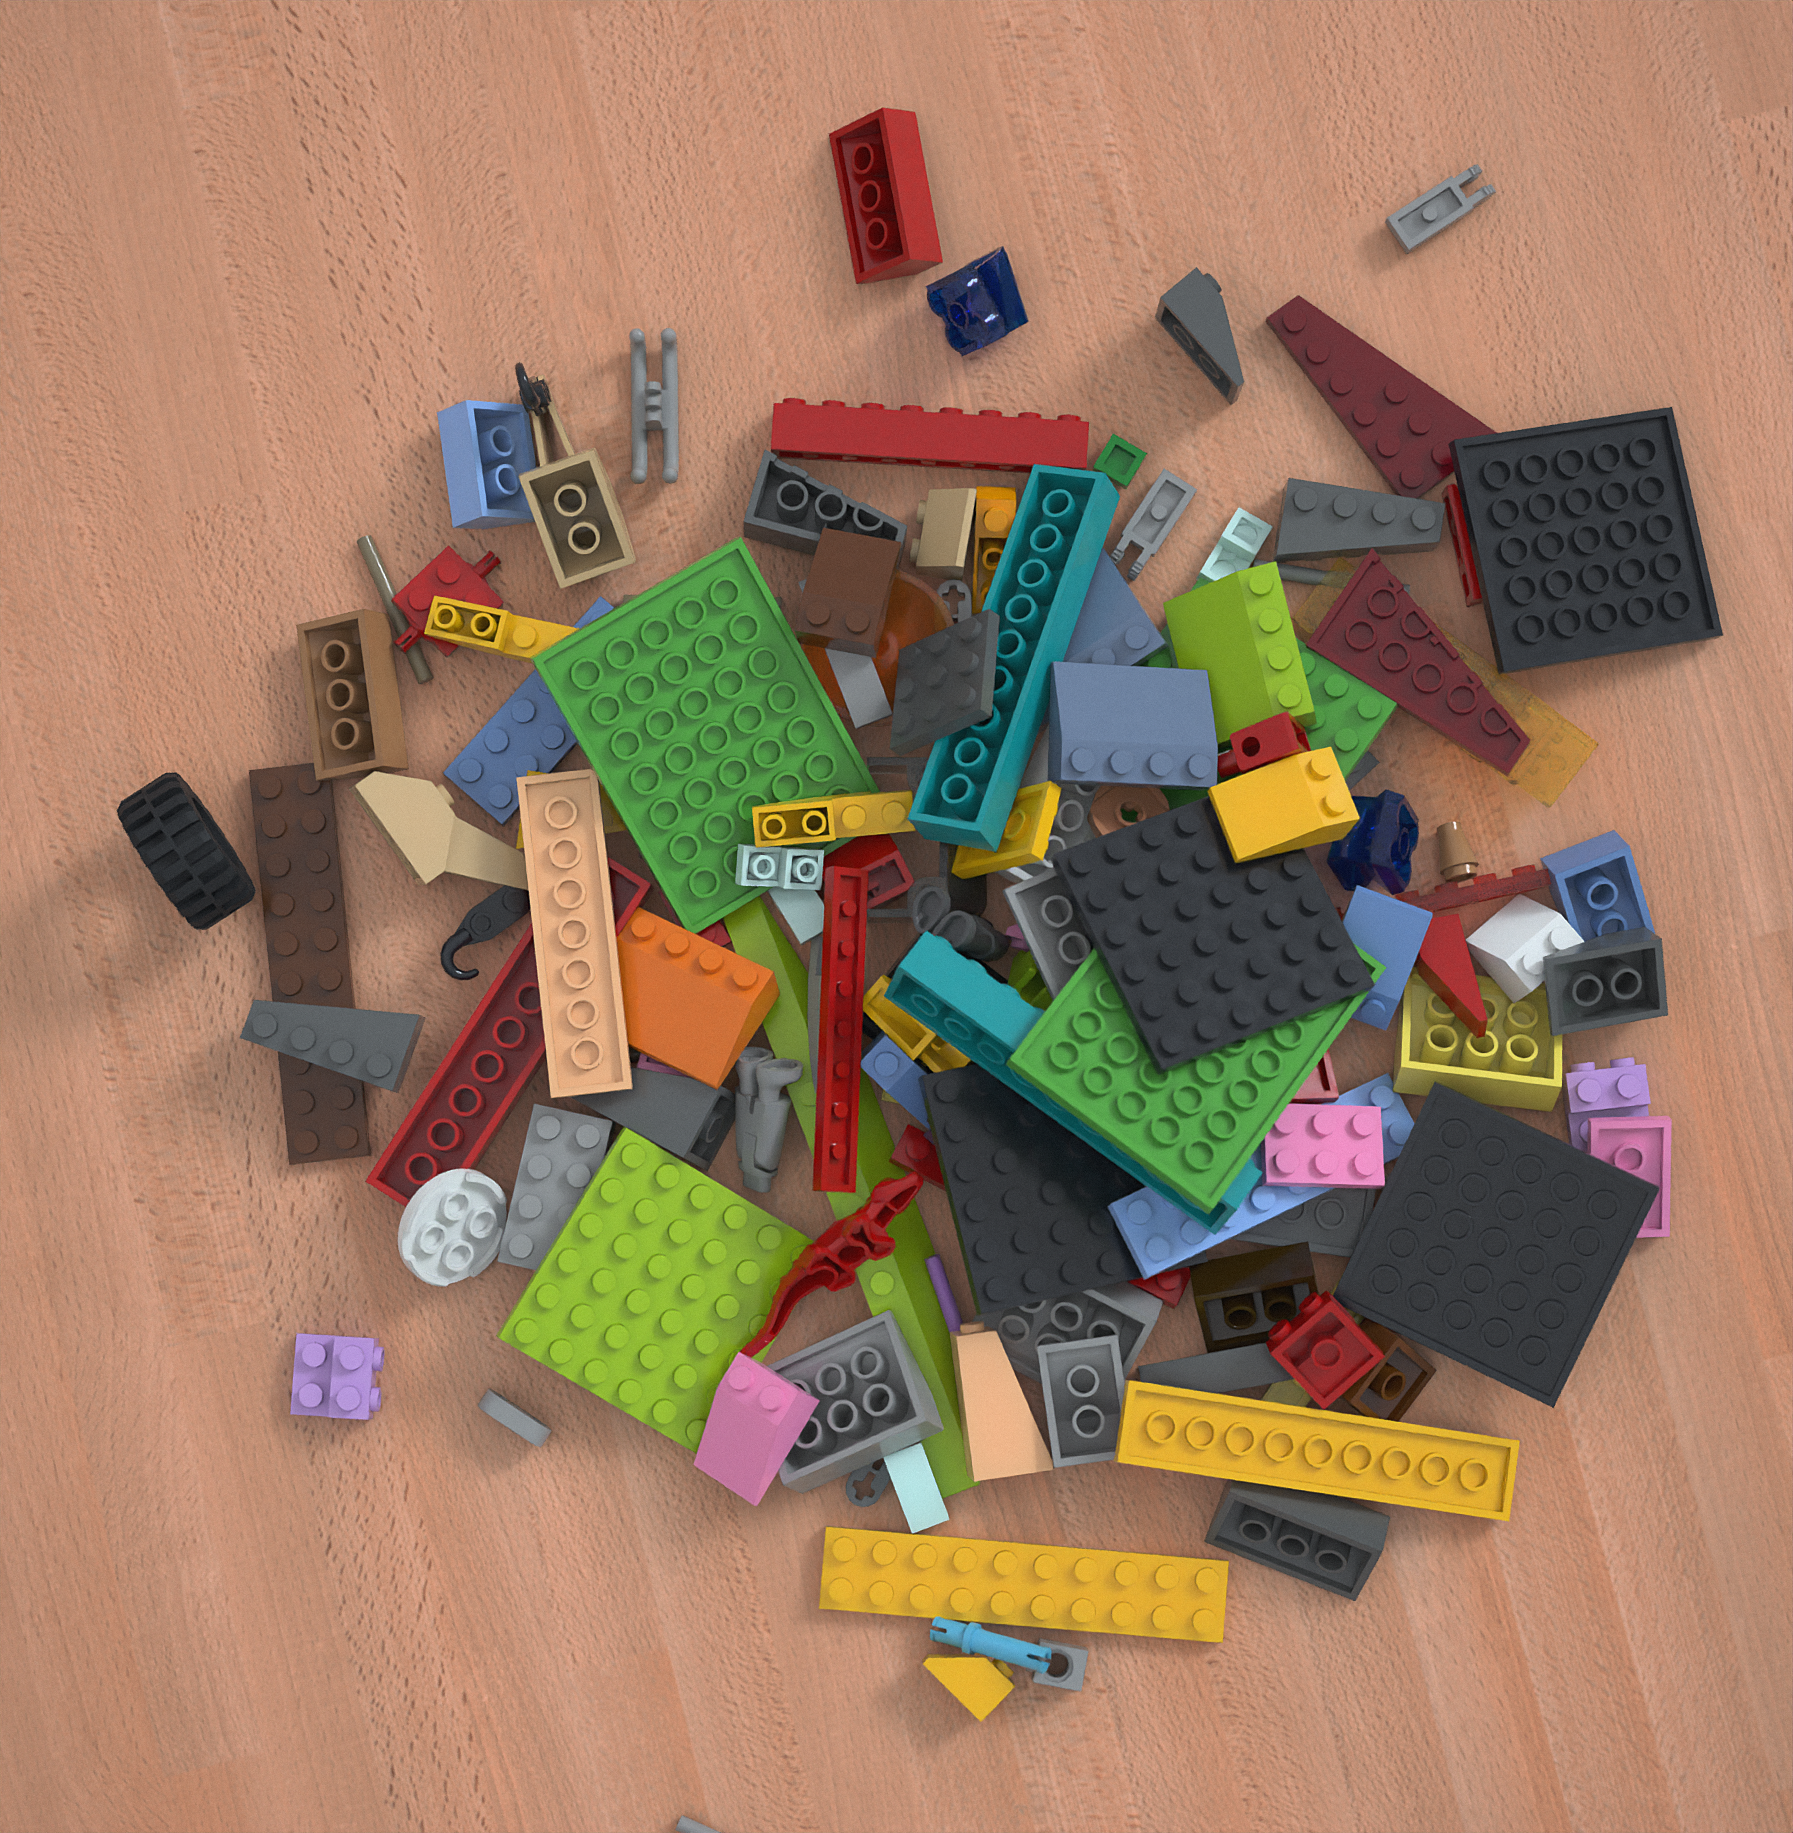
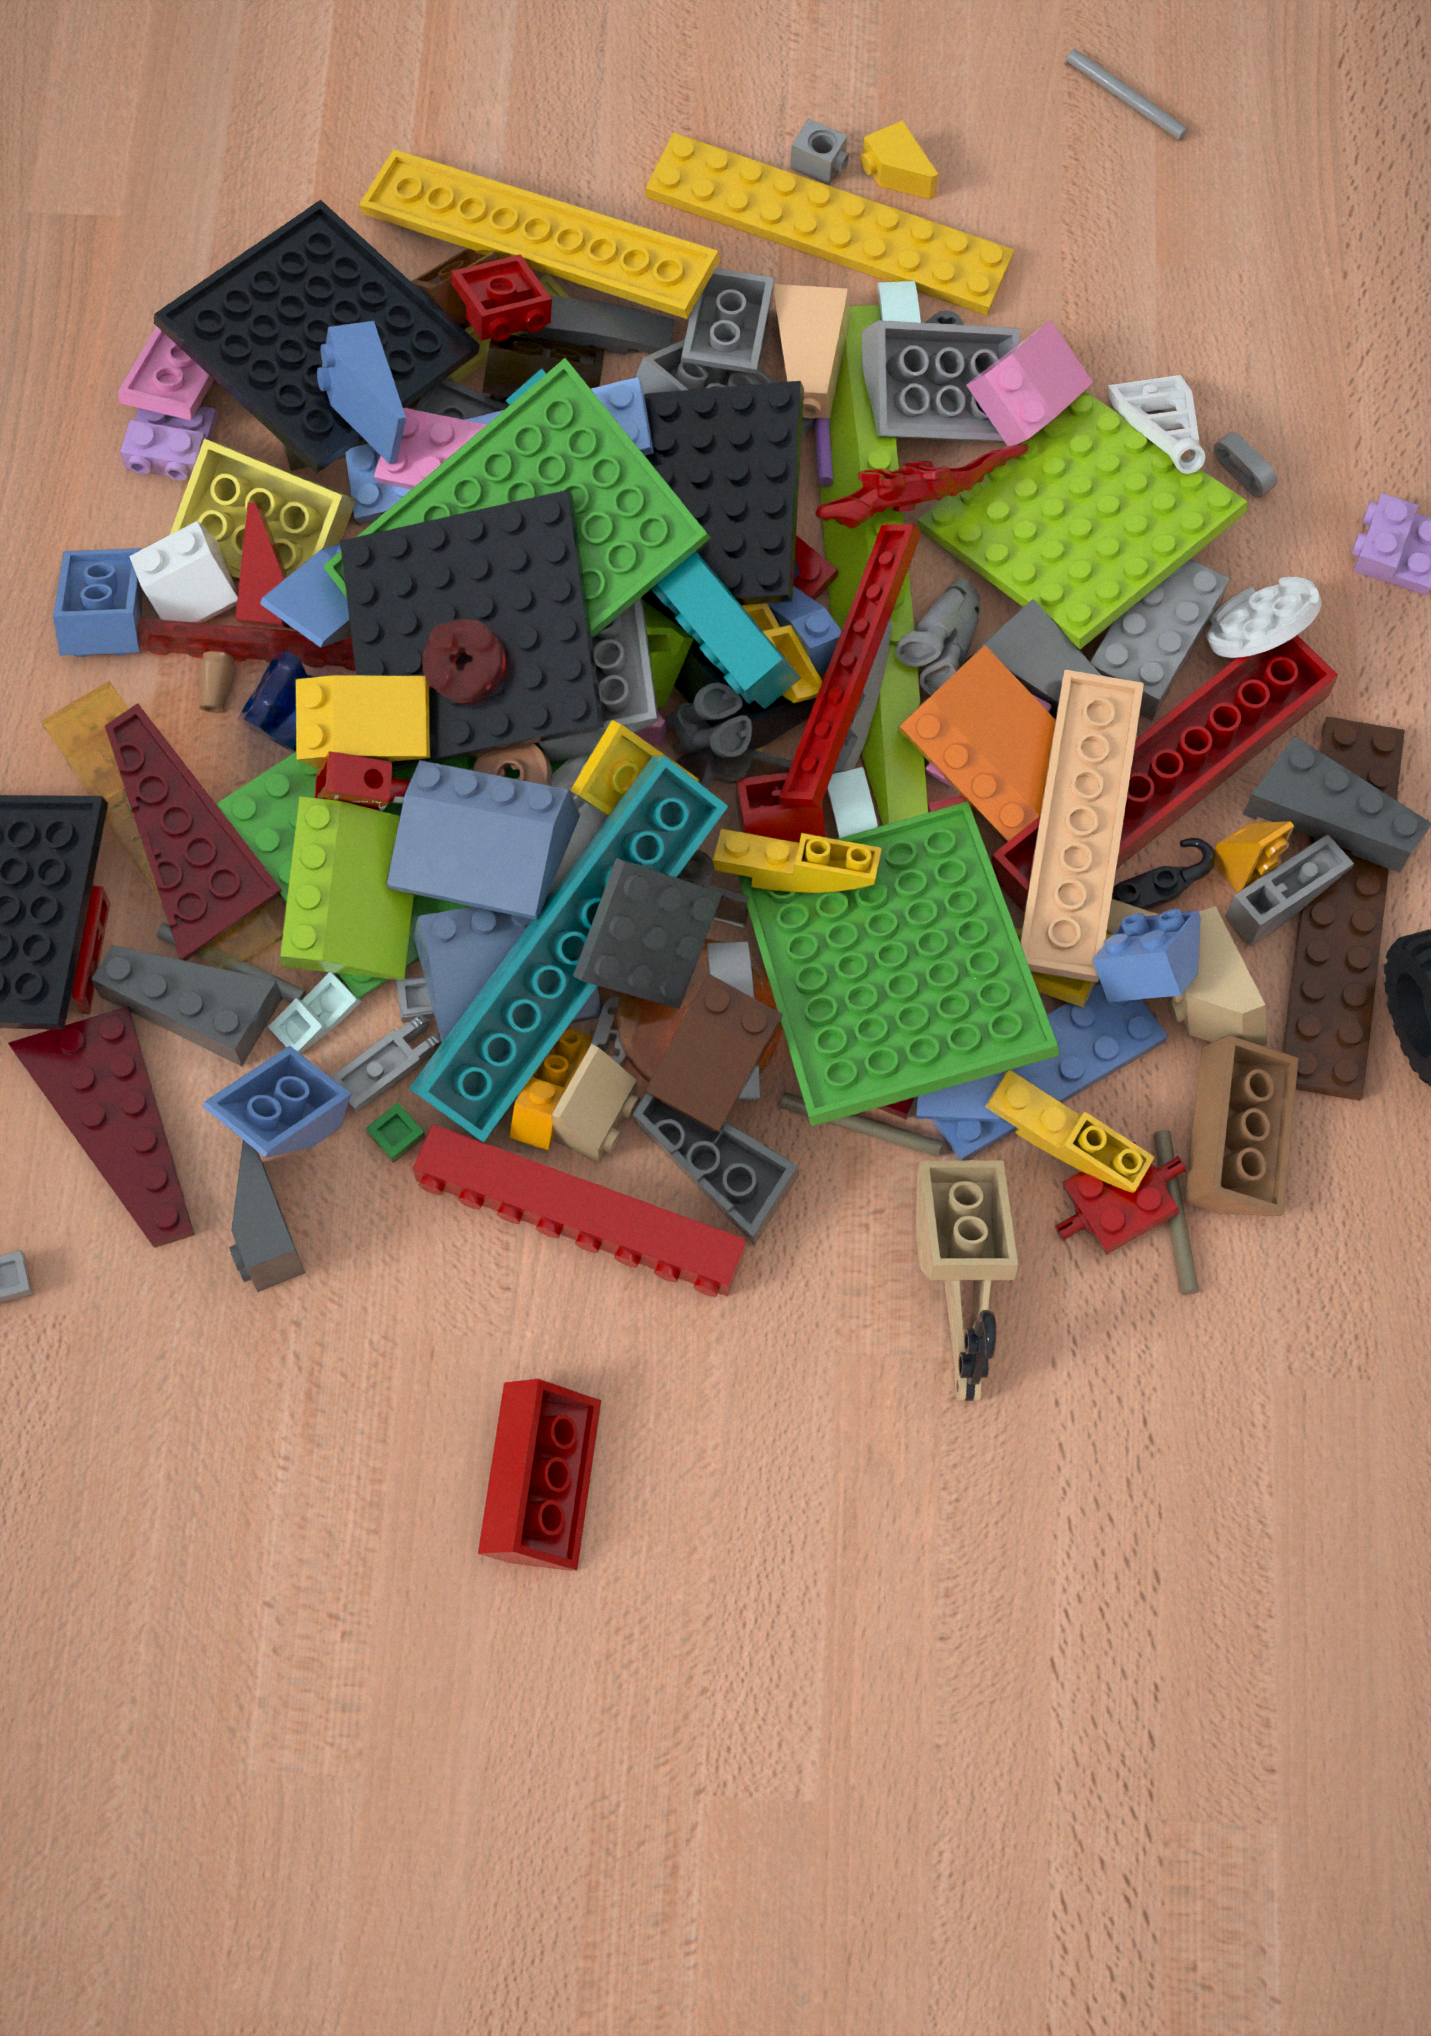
camera: 165 degrees left, 15 degrees down
(362, 947) = (1287, 890): none -> light grey slope
(406, 968) = (1252, 852): none -> light orange slope
(473, 808) = (1150, 956): none -> medium blue slope
(482, 456) = (1043, 1322): light blue slope -> none
(631, 1467) = (1163, 394): none -> white plate
(654, 406) = (853, 1326): light grey piece -> none
(779, 867) = (856, 828): light aqua slope -> none
(974, 1639) = (873, 174): medium azure pin -> none
(978, 302) = (481, 1325): clear blue piece -> none
(1150, 594) = (414, 999): none -> light grey tile
(1217, 862) = (446, 644): none -> clear red plate
(1227, 430) = (281, 1105): none -> medium blue slope
(1300, 1534) = (555, 172): dark grey slope -> none
(1422, 1173) = (362, 386): none -> medium blue slope
(1606, 982) = (122, 518): dark grey slope -> none

